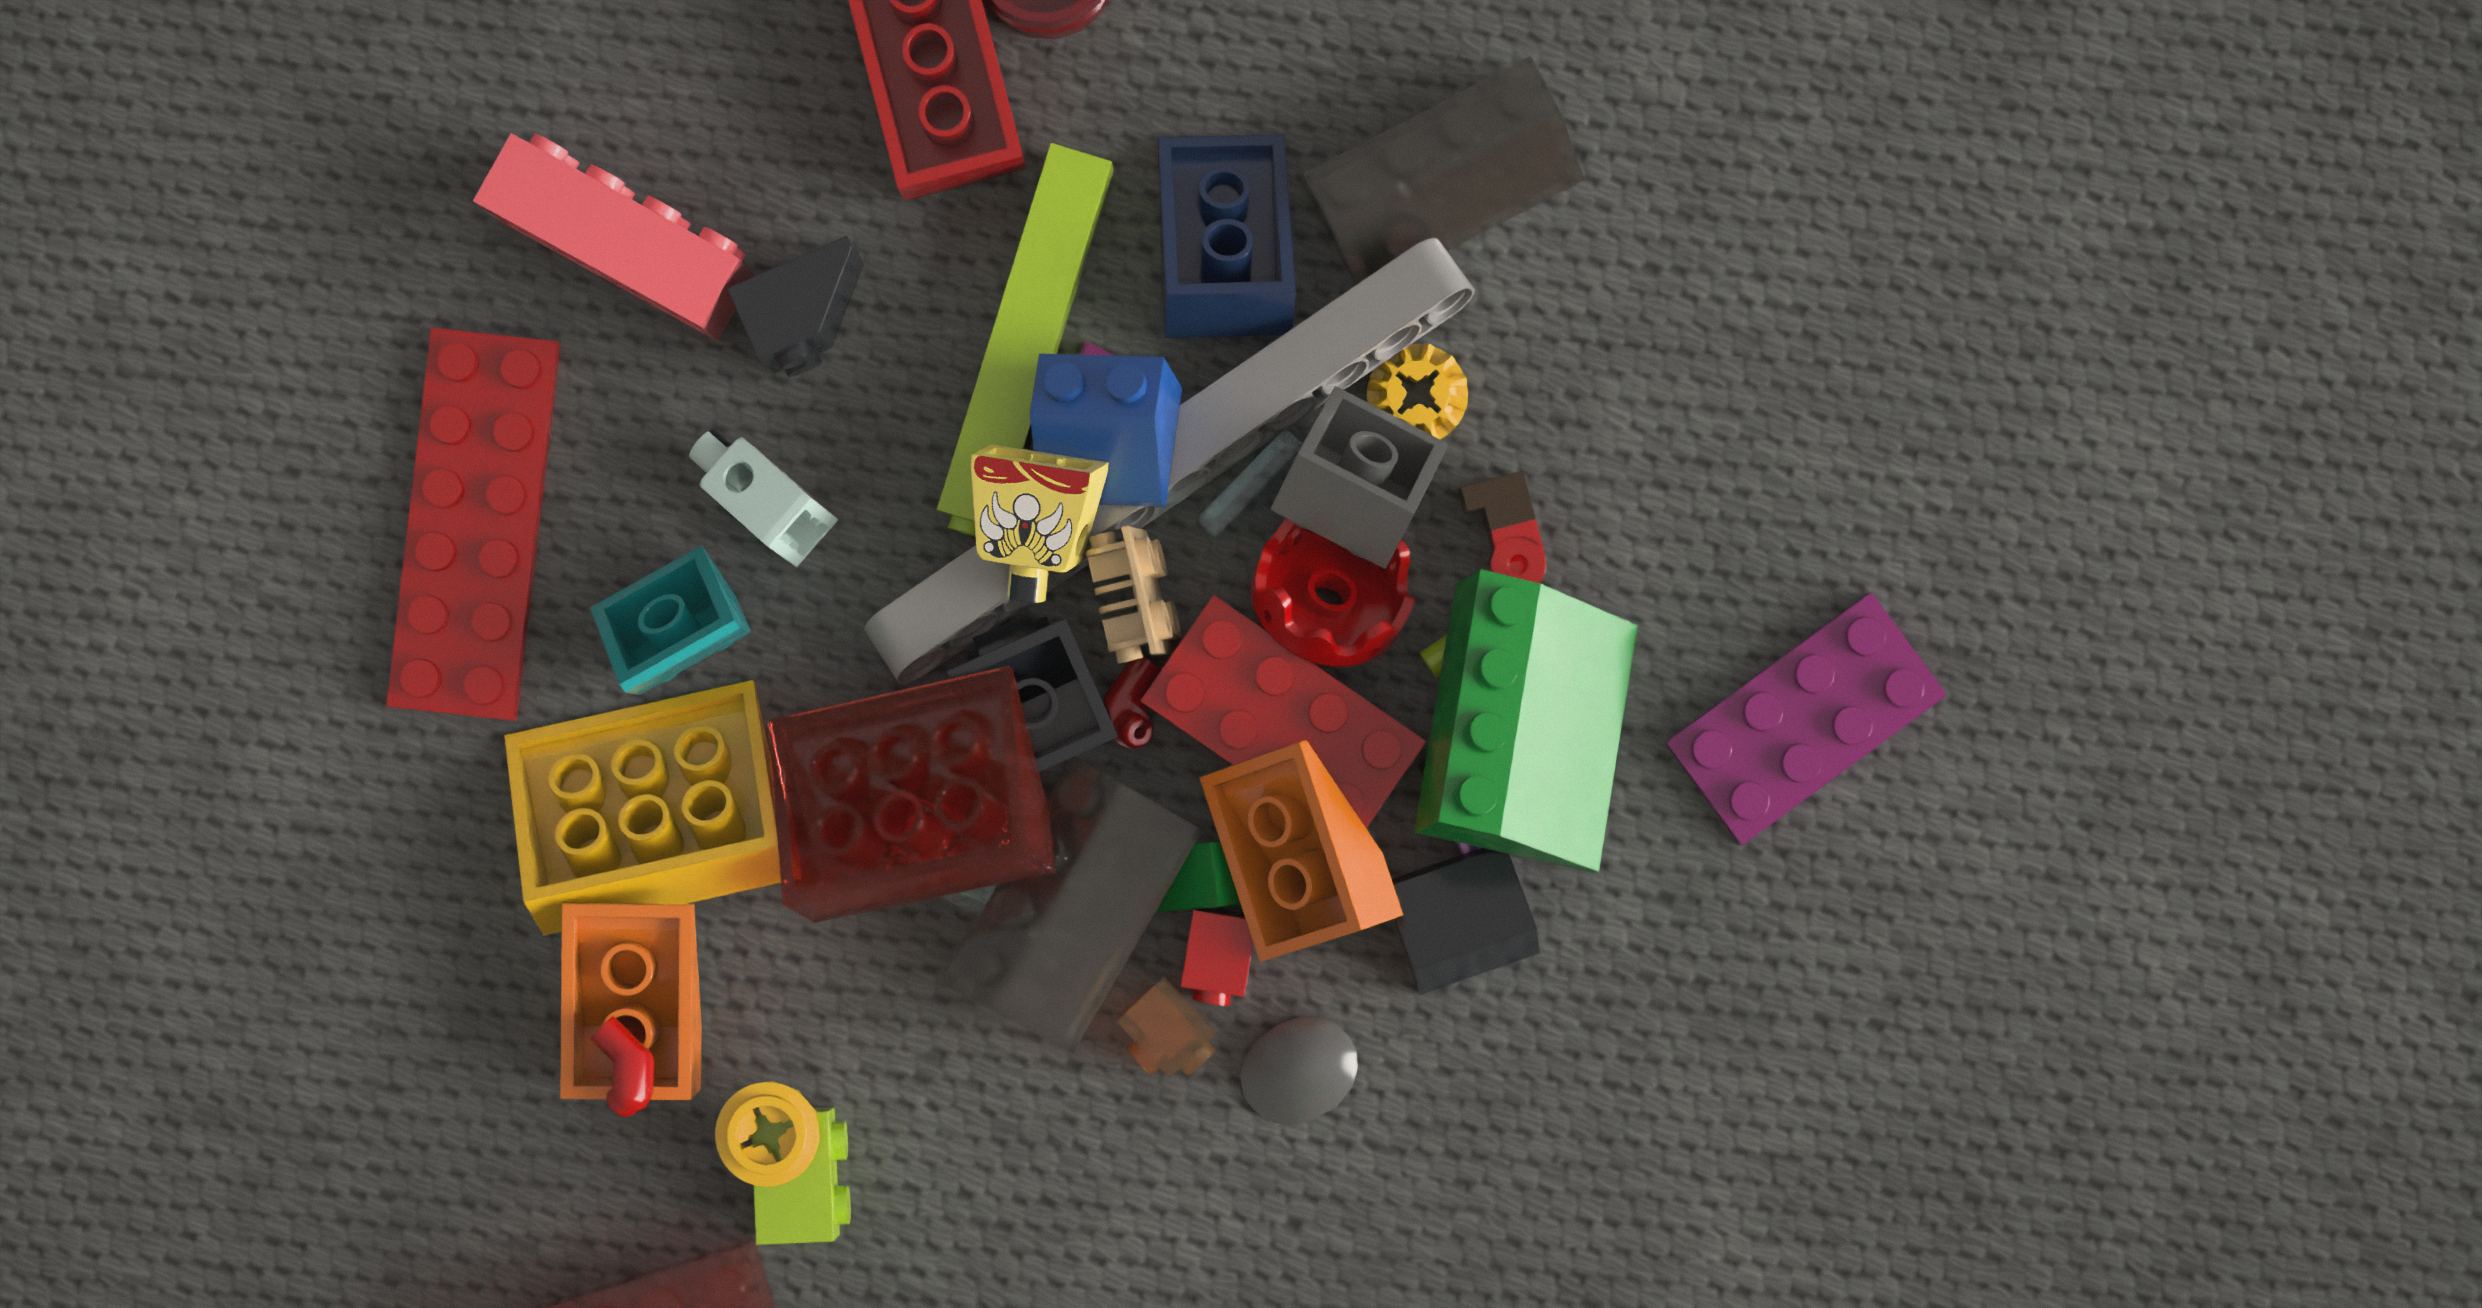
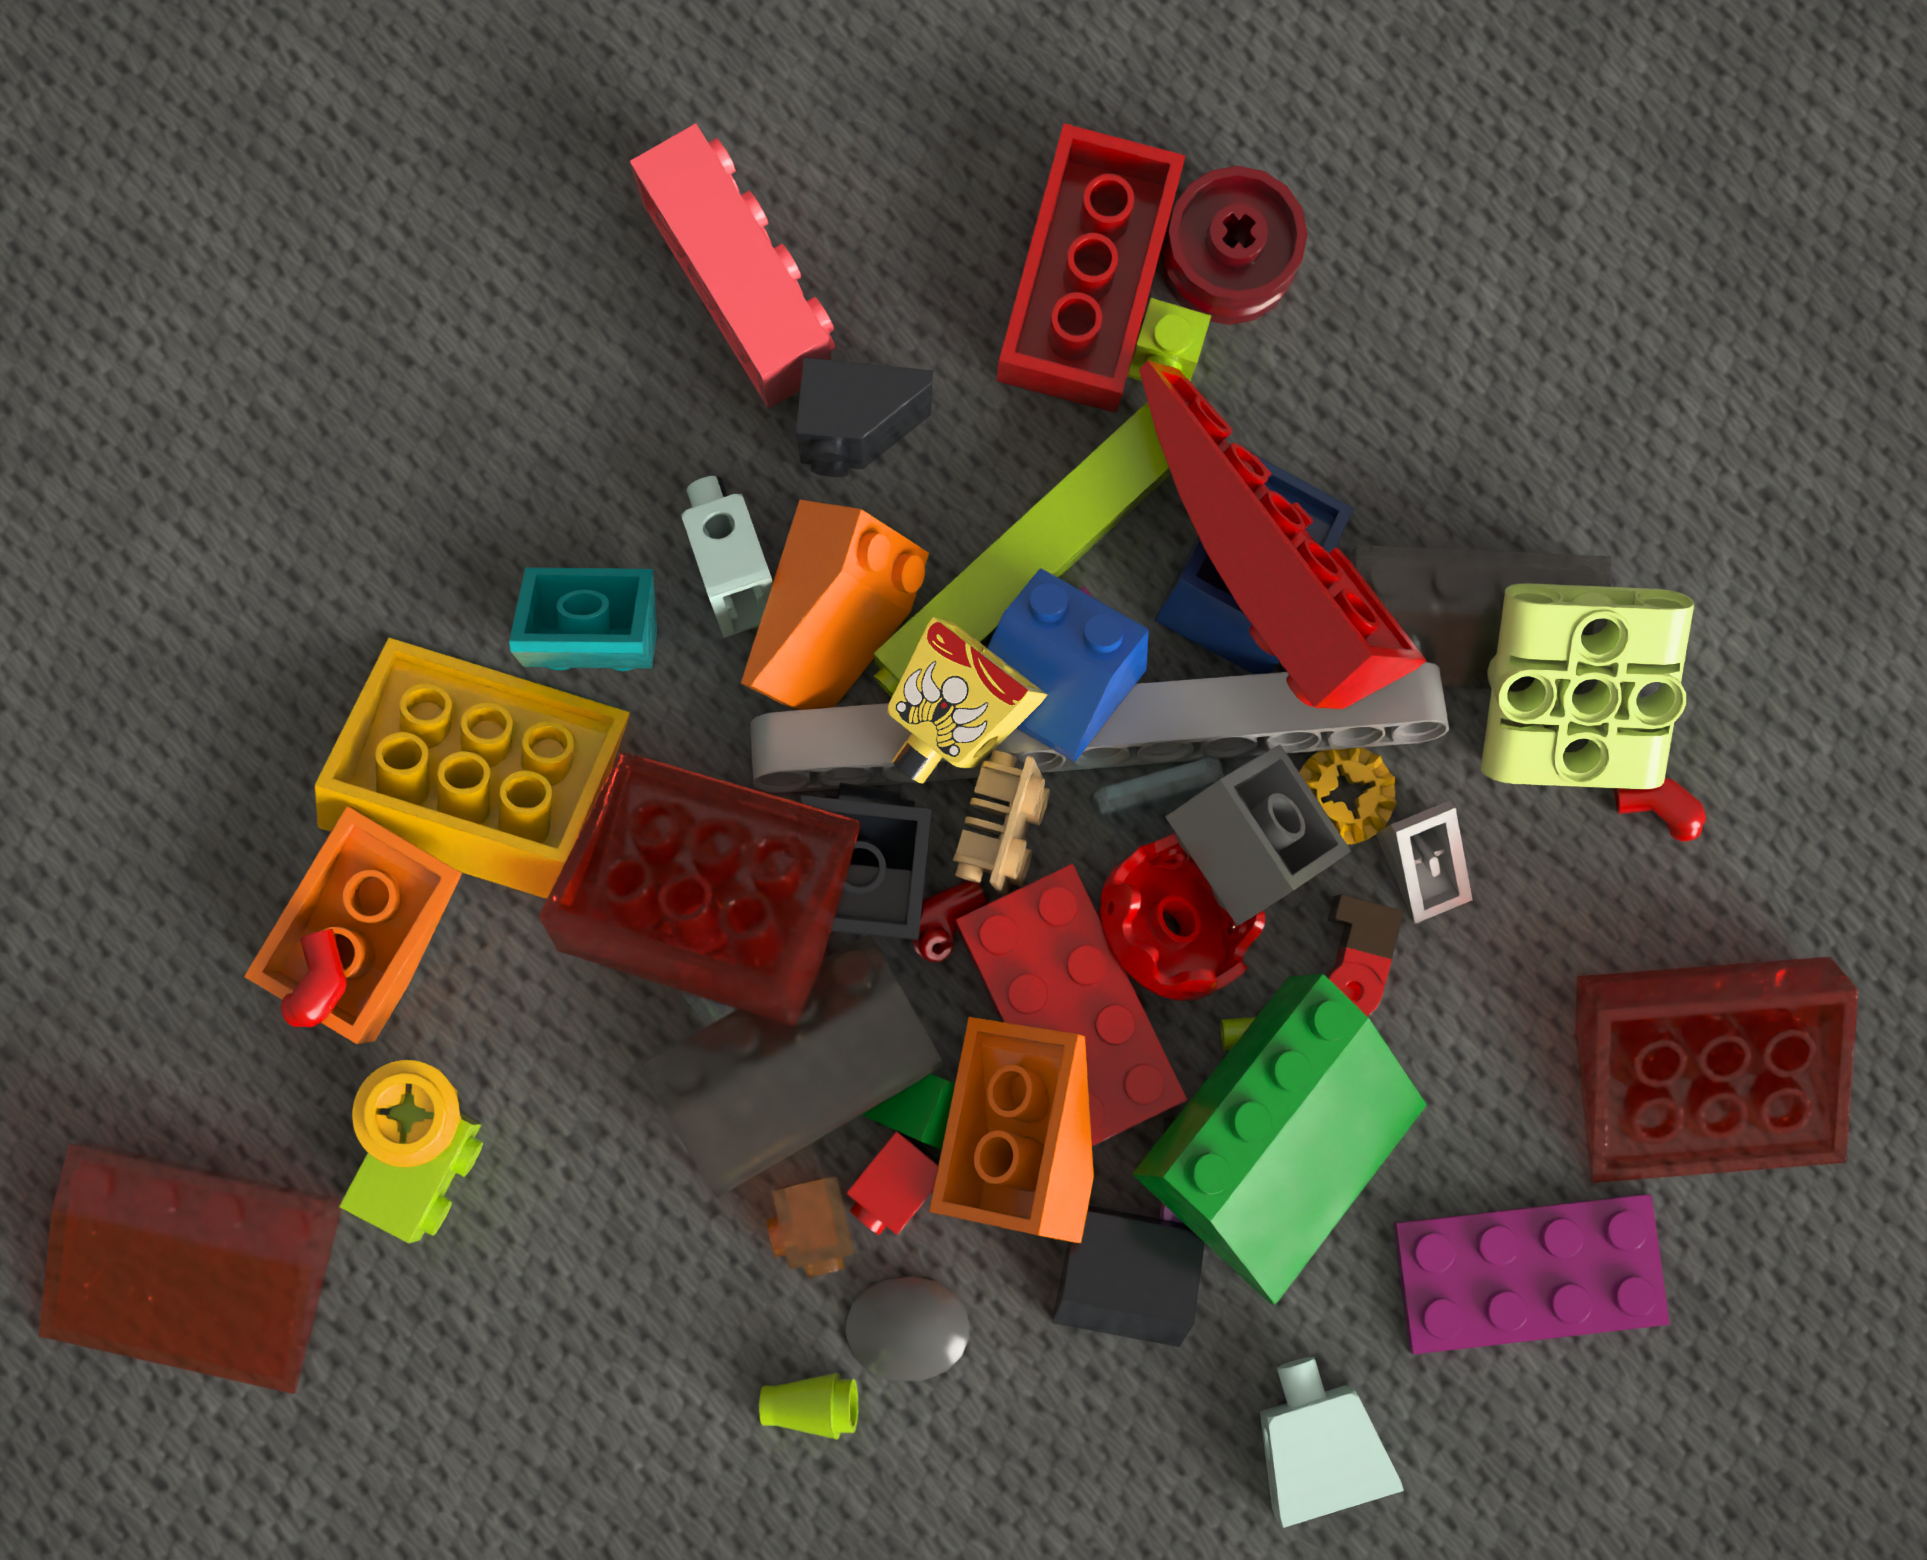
camera: 25 degrees right, 5 degrees down
(473, 524) = (469, 444): red plate -> none
(876, 489) = (831, 605): none -> orange slope
(1039, 84) = (1170, 337): none -> lime brick
(1255, 1180) = (812, 1405): none -> lime cone
(1277, 252) = (1299, 598): none -> red wedge
(1514, 168) = (1625, 732): none -> yellowish green connector
(1521, 414) = (1428, 861): none -> light grey slope
(1700, 239) = (1670, 802): none -> red arm
(1706, 969) = (1321, 1449): none -> light aqua torso
(1867, 451) = (1716, 1068): none -> clear red slope

